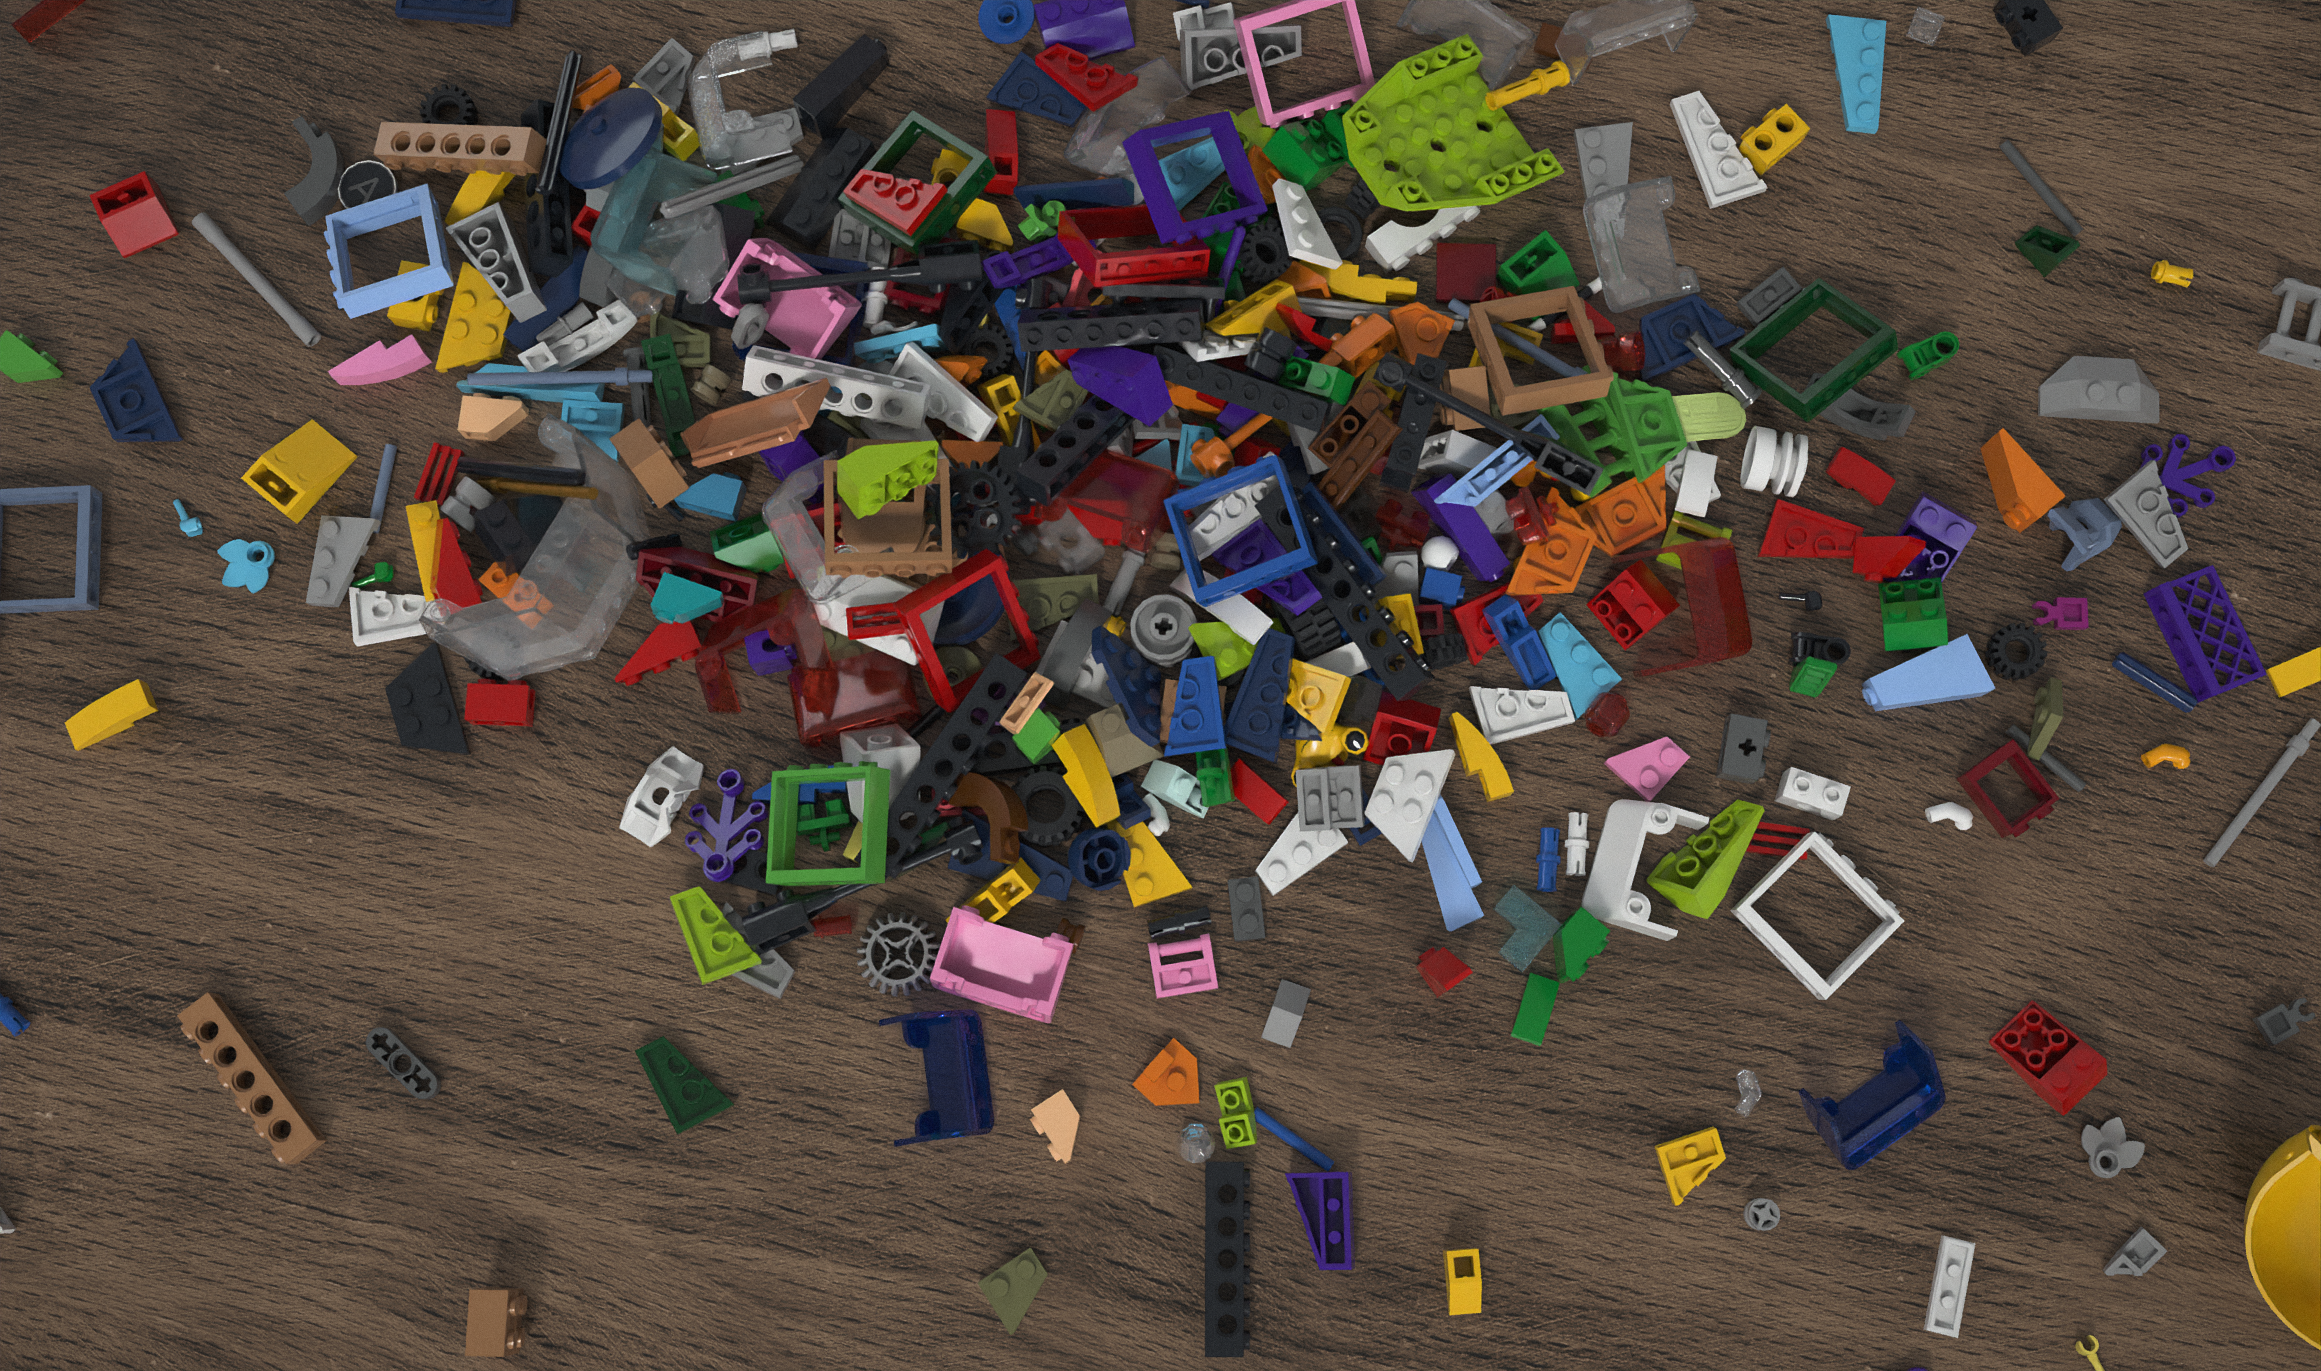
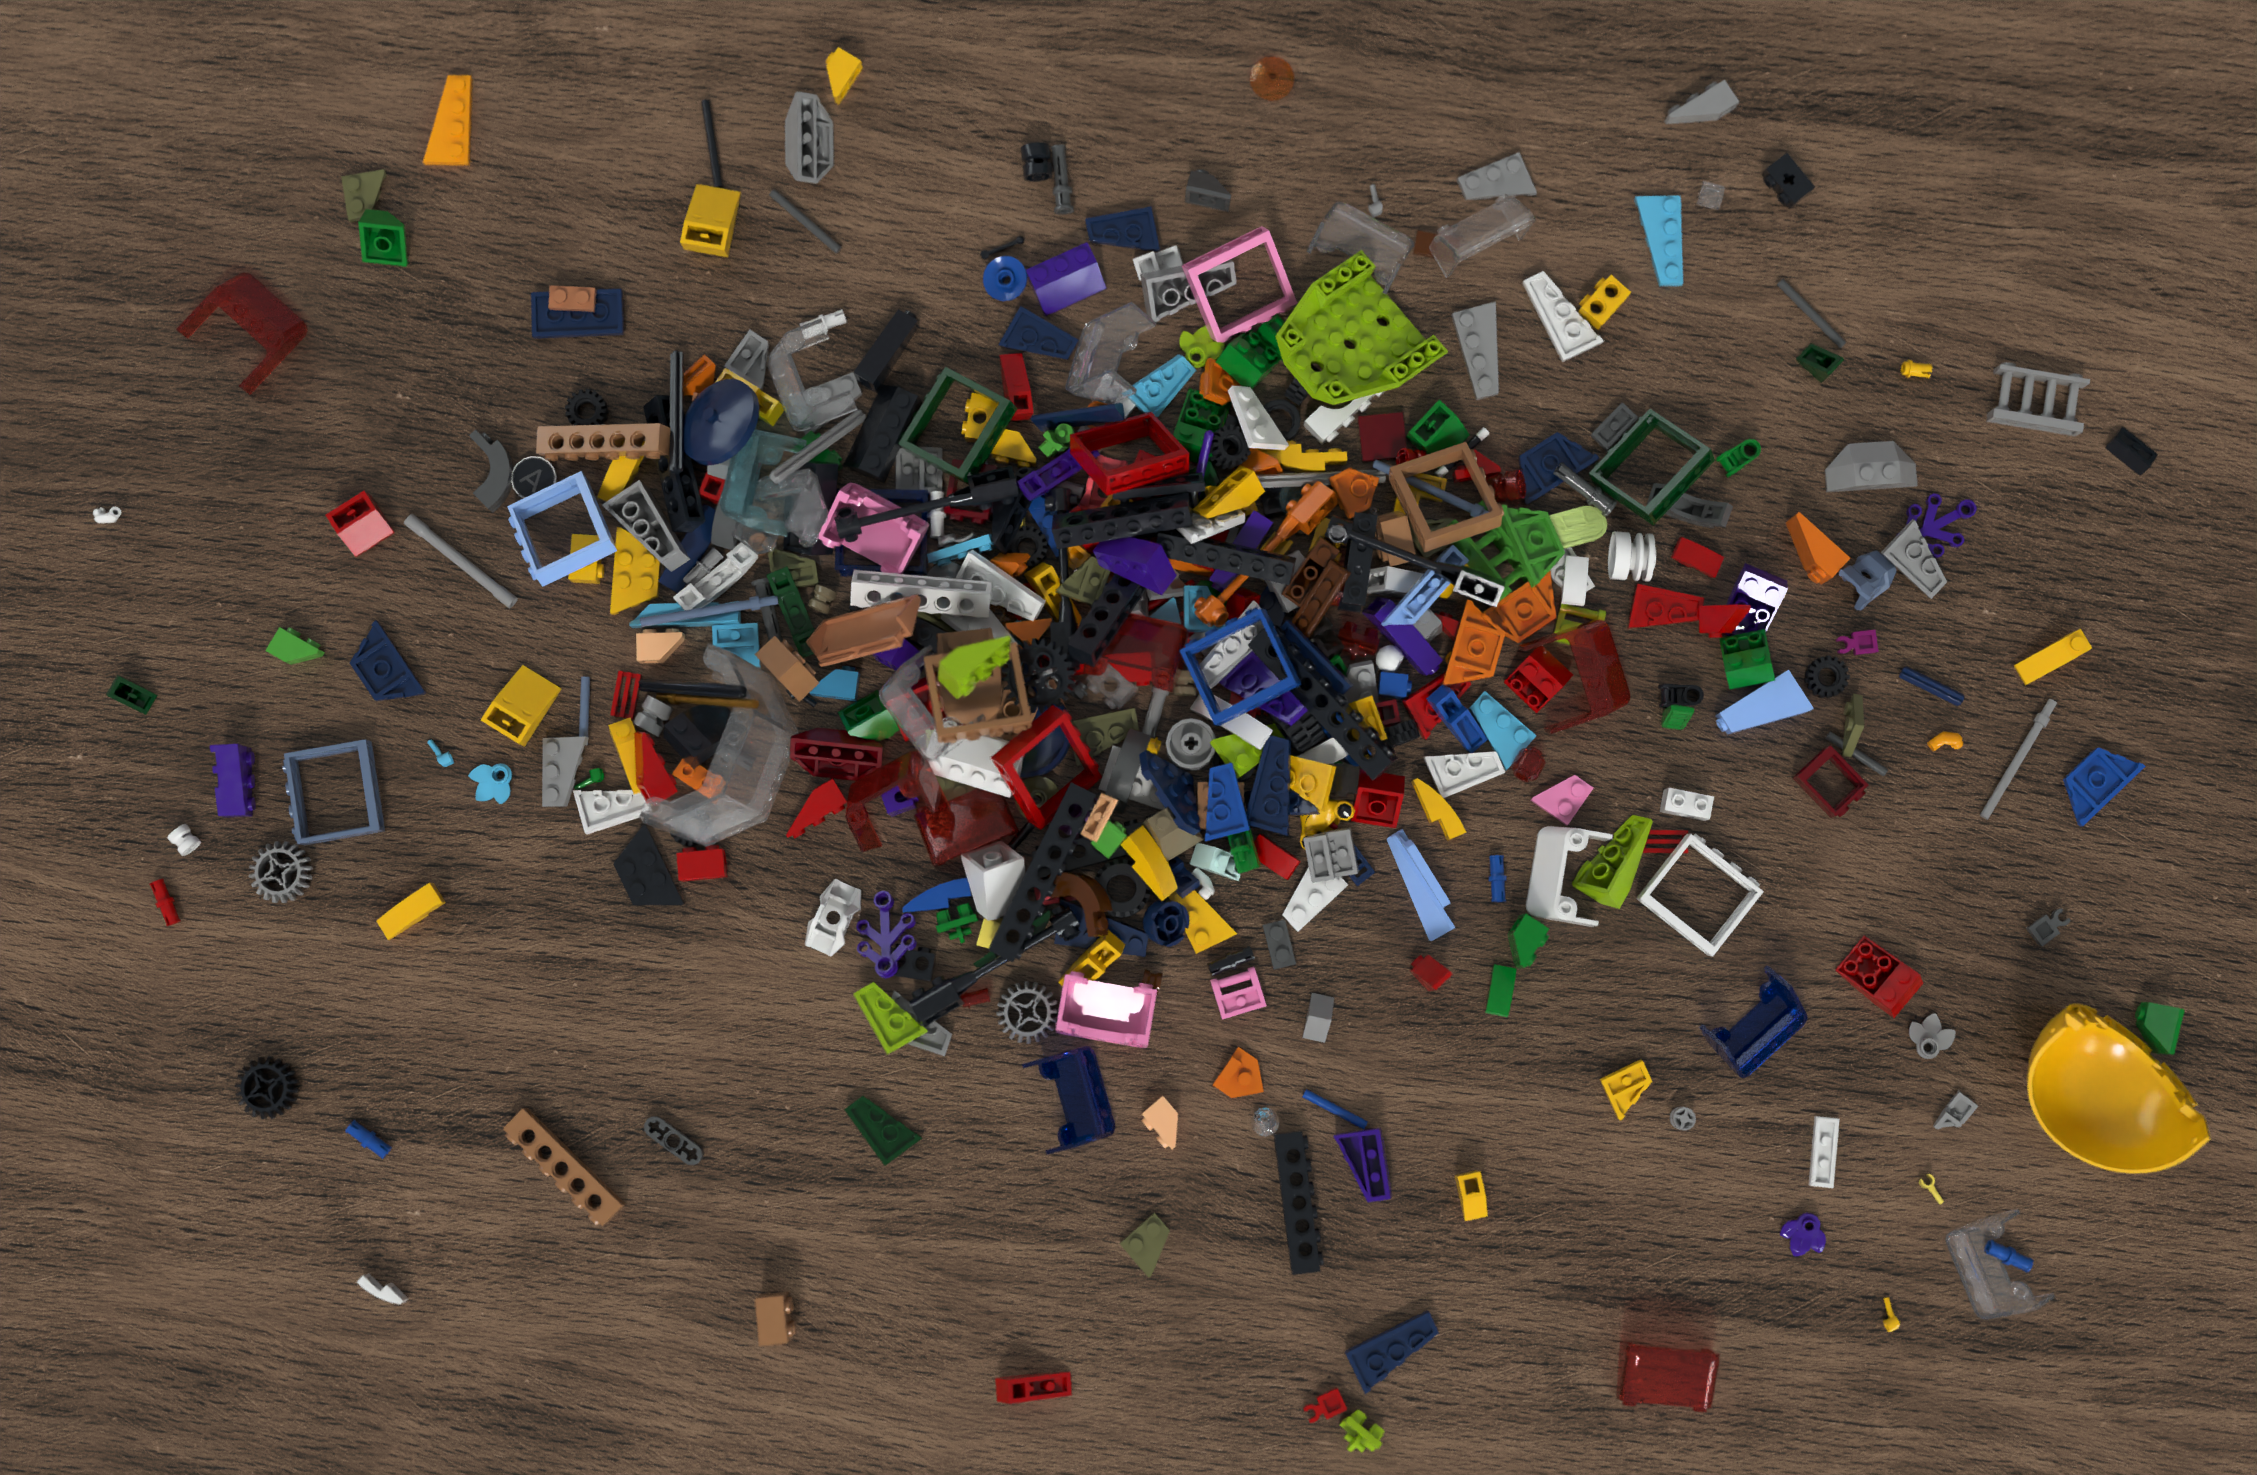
camera: 10 degrees left, 5 degrees up
(381, 363) = (569, 614): bright pink slope -> none
(670, 540) = (806, 725): black axle -> none
(683, 599) = (829, 770): teal slope -> none
(749, 325) = (848, 553): light grey plate -> none
(784, 823) = (930, 926): bright green window -> none
(875, 621) = (978, 777): red tile -> none
(893, 199) = (944, 442): wing -> none
(1085, 80) = (1073, 324): red wing -> none
(1157, 193) = (1144, 416): dark purple window -> none
(1237, 1111) = (1292, 1095): lime slope -> none
(1270, 354) = (1245, 528): black wheel -> none
(1302, 326) = (1266, 501): red slope -> none
(1318, 379) = (1281, 541): green slope -> none
(1407, 797) = (1388, 847): white wing -> none
(1532, 924) = (1492, 931): clear light blue plate -> none
(1536, 529) = (1449, 617): clear red hips -> none
(1538, 82) = (1420, 280): yellow pin -> none
(1576, 844) = (1517, 864): white pin -> none
(1635, 247) = (1509, 402): clear windscreen -> none
(1731, 762) = (1624, 787): dark grey brick -> none
(1749, 1090) = (1664, 1029): clear arm -> none
(1812, 599) = (1671, 657): black hand -> none
(1953, 811) = (1792, 803): white arm -> none
(2186, 642) = (1949, 651): dark purple fence -> none

